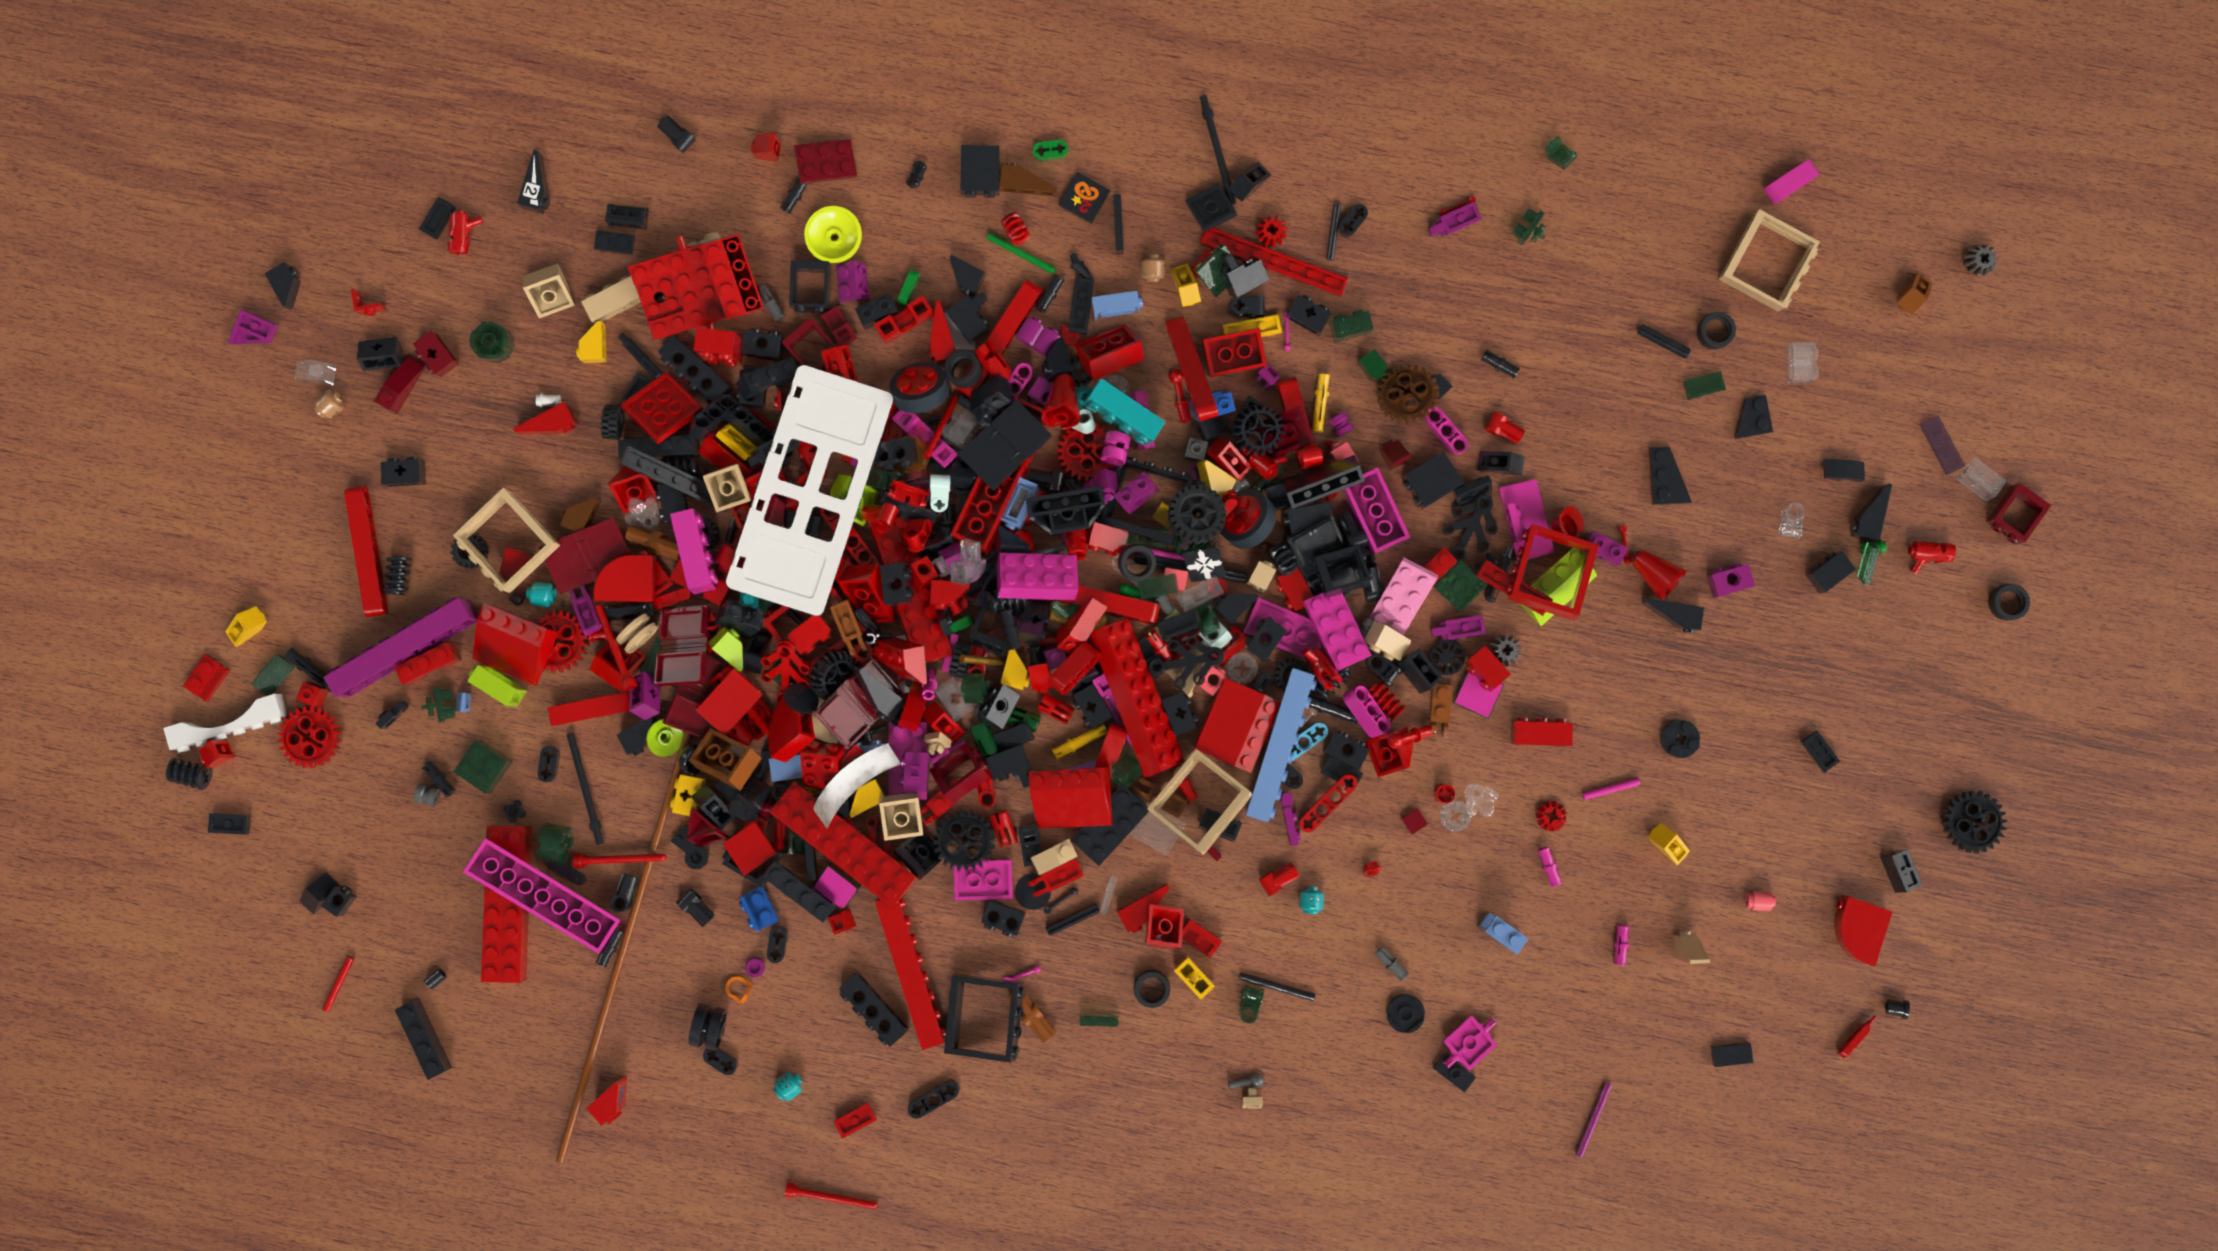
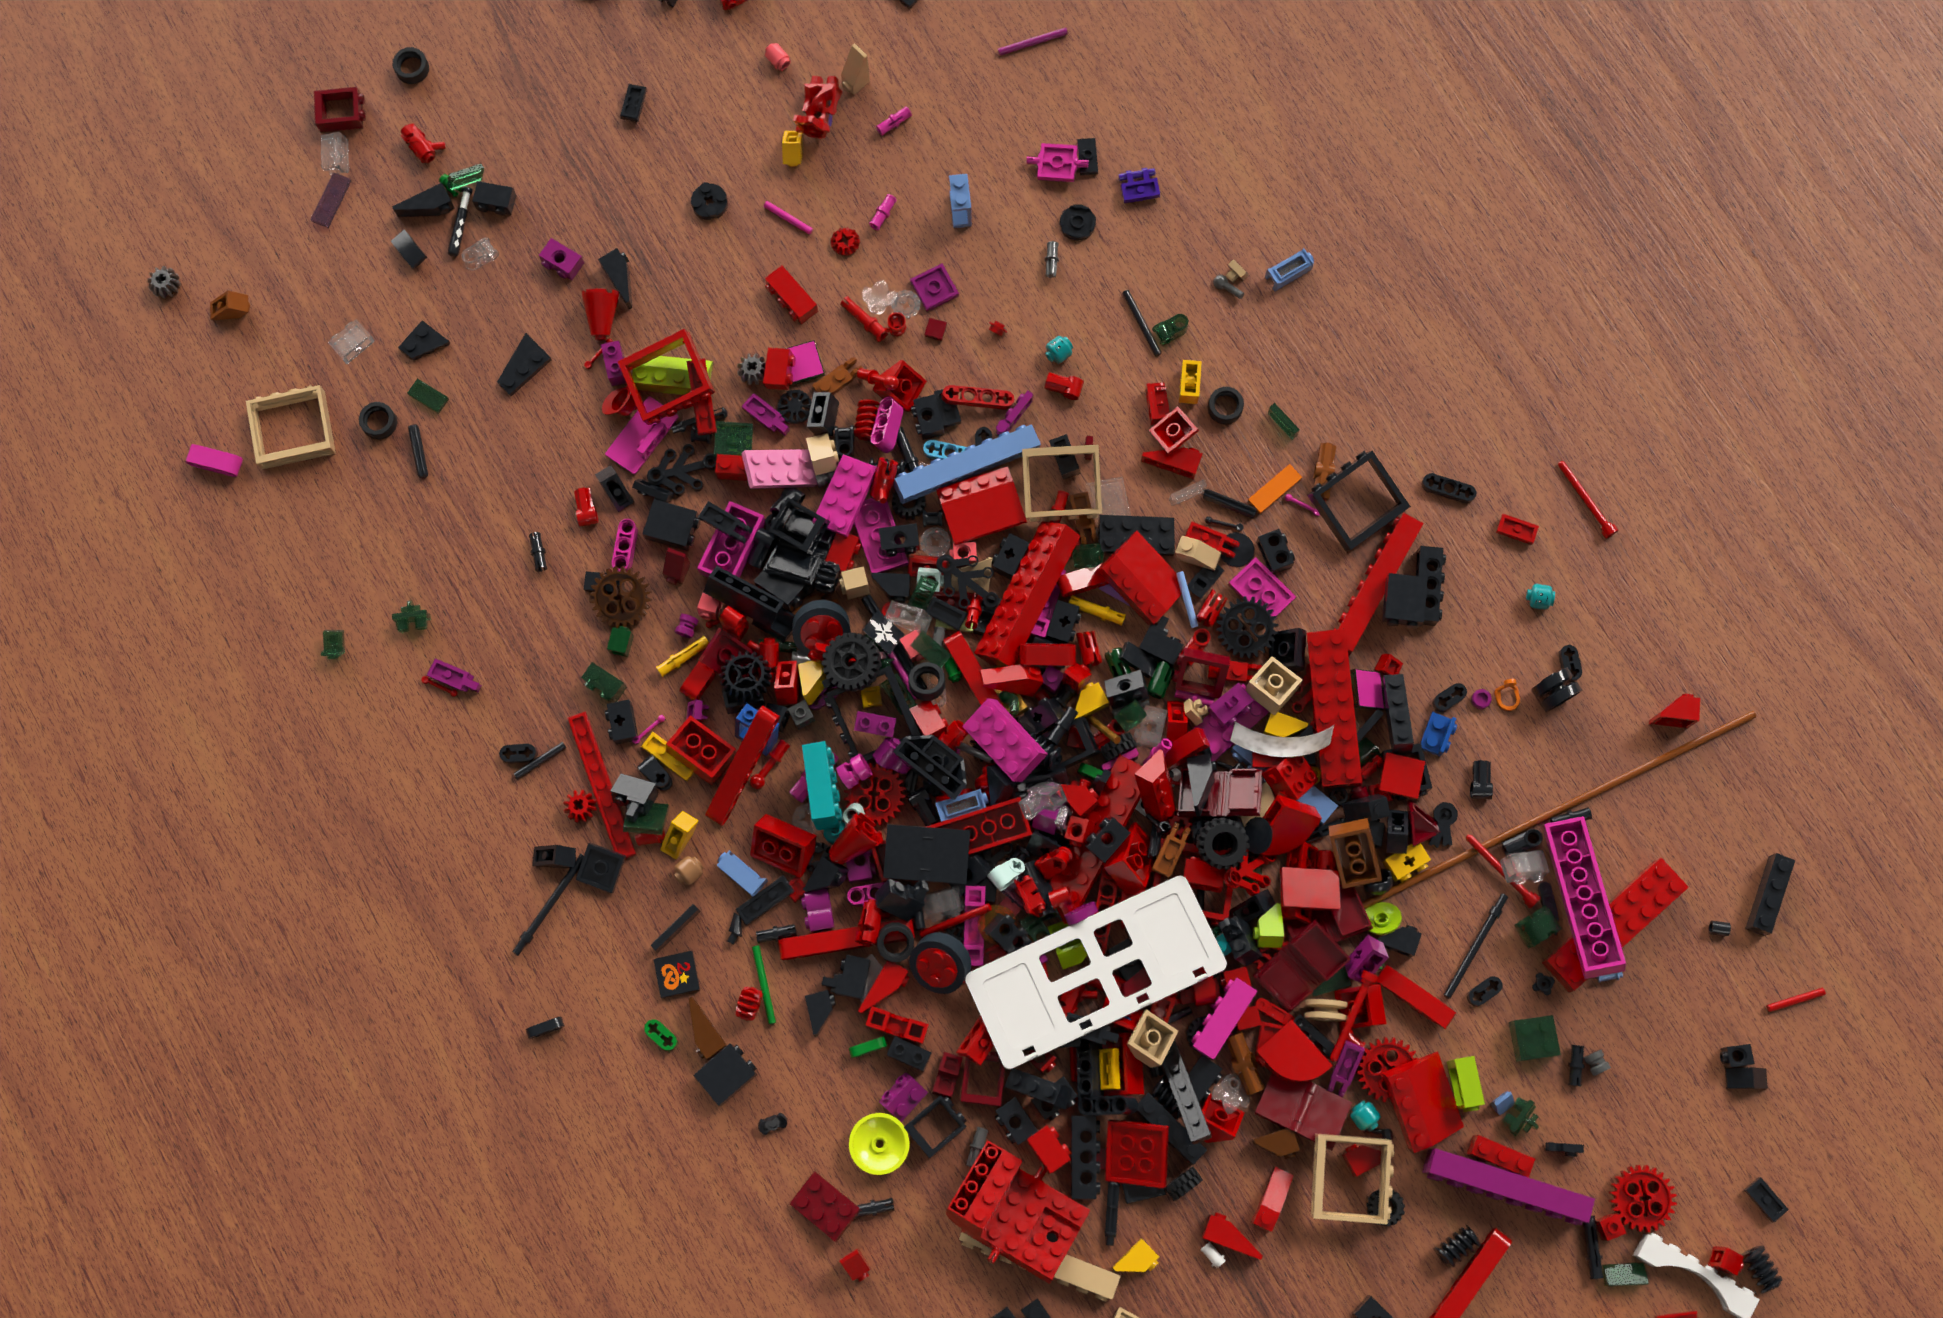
camera: 130 degrees left, 10 degrees down
(546, 475) = (1272, 1199): none -> slope
(605, 876) = (1525, 866): none -> clear brick
(801, 656) = (1237, 851): none -> black tyre
(862, 519) = (1081, 913): none -> magenta beam
(874, 976) = (1404, 600): none -> black brick
(1026, 816) = (1187, 599): none -> light blue bar
(1052, 965) = (1275, 489): none -> orange tile
(1128, 72) = (545, 1027): none -> black beam
(1216, 1144) = (1290, 269): none -> medium blue window
(1388, 1087) = (1139, 190): none -> dark purple plate
(1396, 516) = (723, 521): none -> black hinge
(1450, 851) = (934, 287): none -> magenta tile
(1462, 773) = (870, 324): none -> red pin
(1685, 902) = (818, 100): none -> red hips
(1825, 519) = (457, 233): none -> black piece

